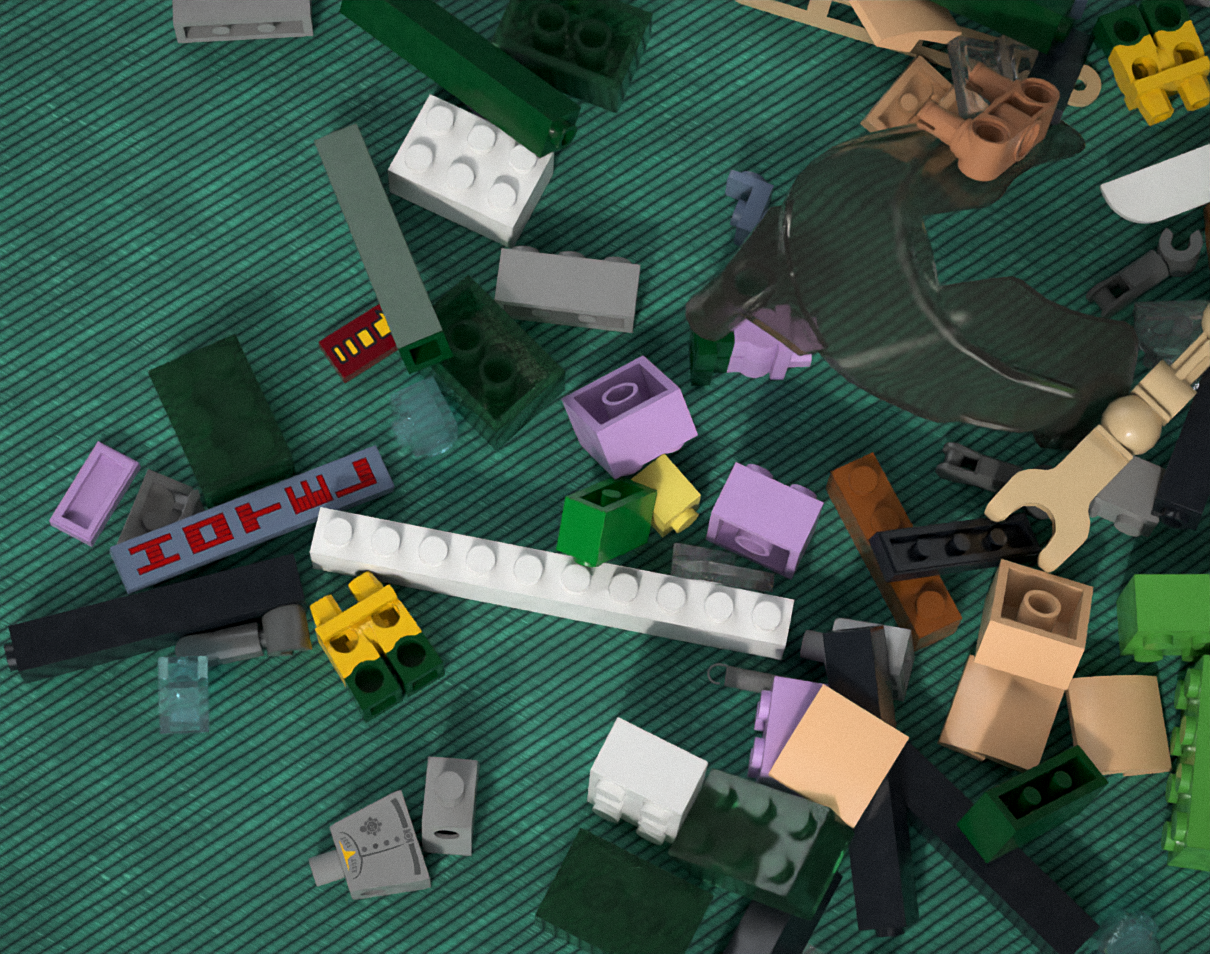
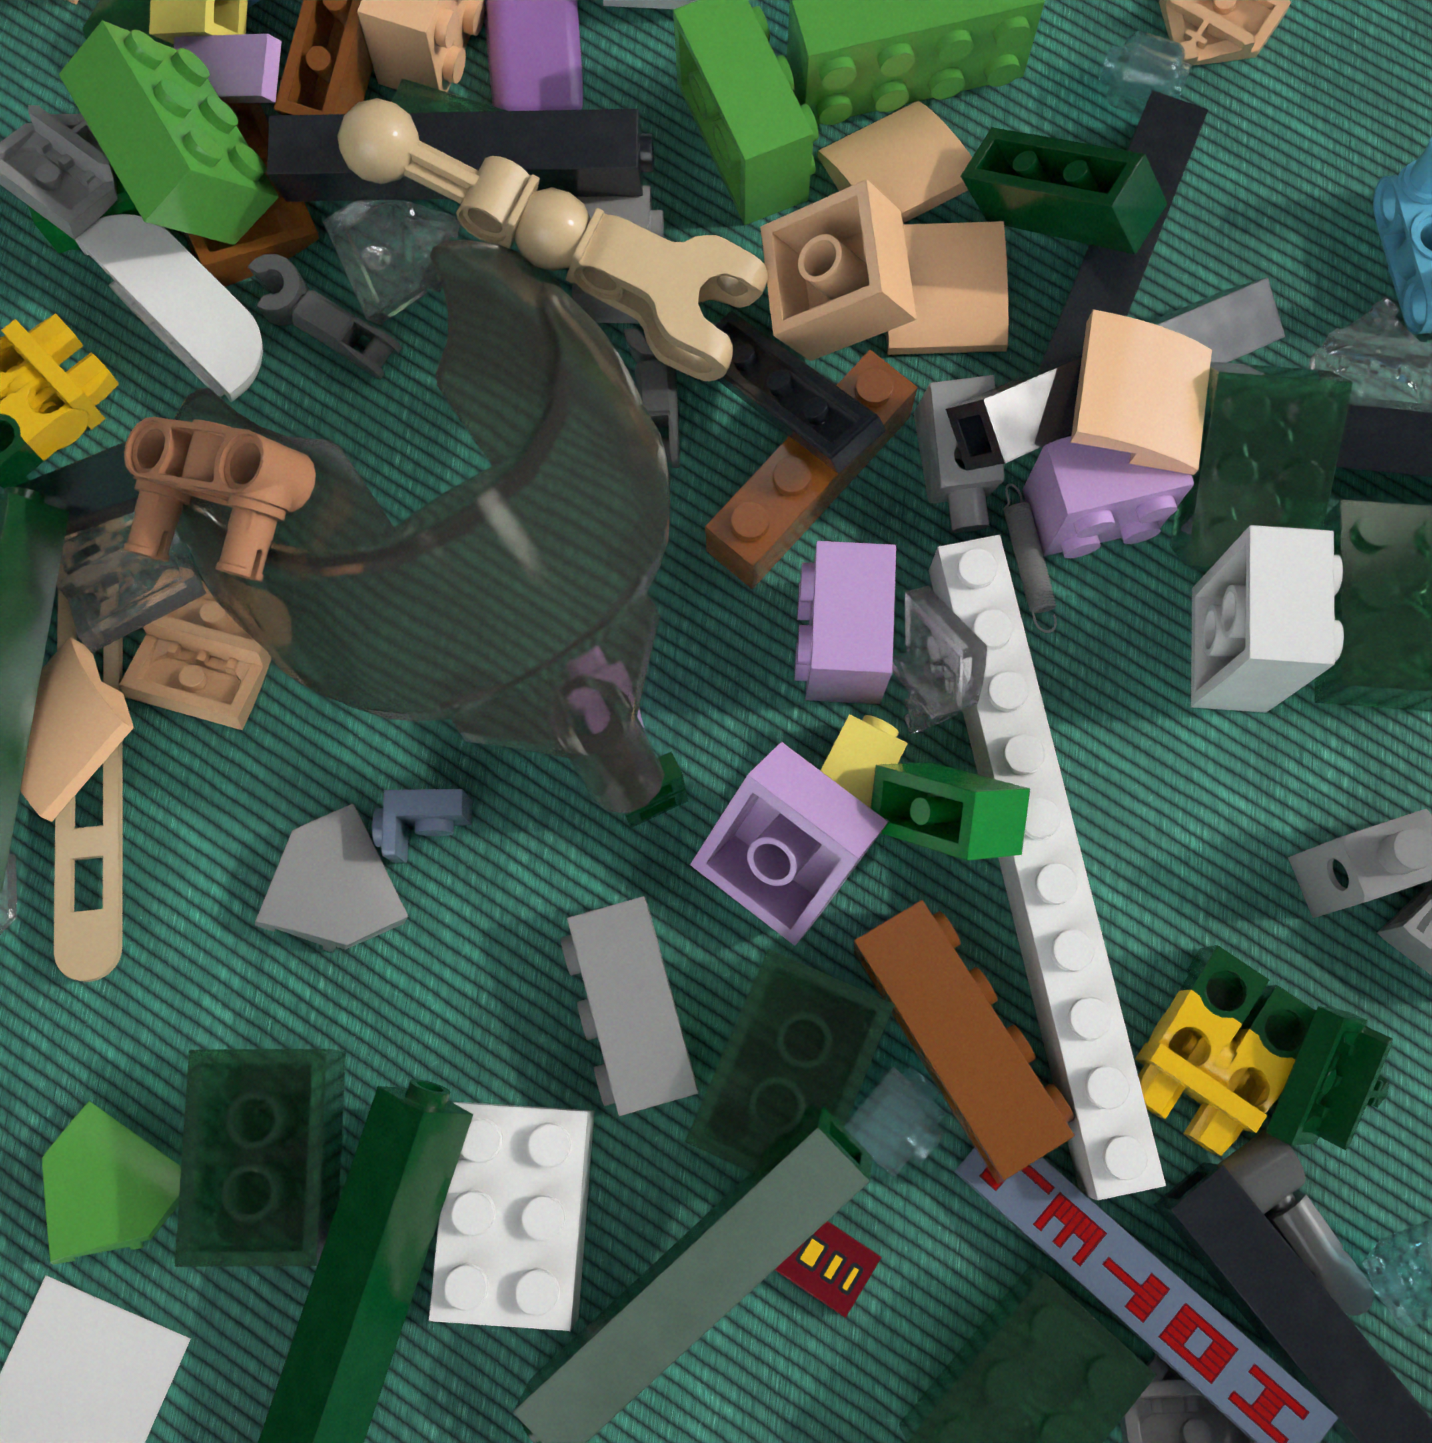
camera: 105 degrees left, 5 degrees up
(324, 696) = (1332, 1080): none -> dark green slope
(455, 477) = (963, 1042): none -> dark orange brick
(728, 138) = (331, 885): none -> light grey slope

